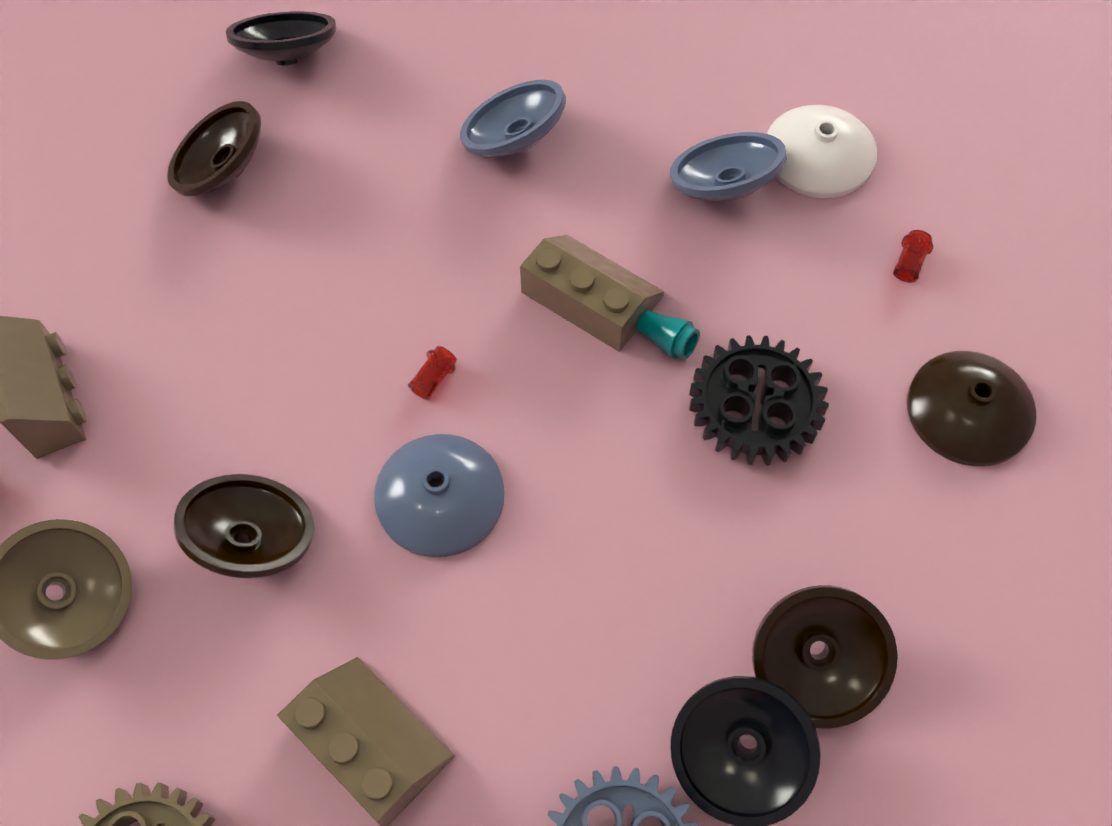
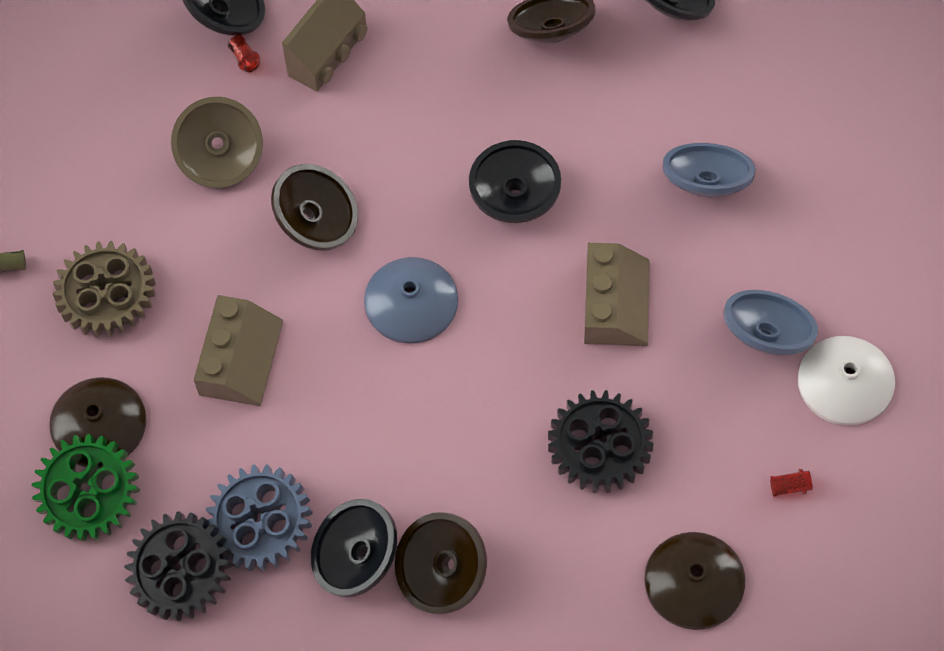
camera: 60 degrees right, 0 degrees up
(380, 279) = (515, 167): none -> black dish
(432, 373) = (487, 244): clear red pin -> none
(671, 334) = (613, 363): teal cone -> none

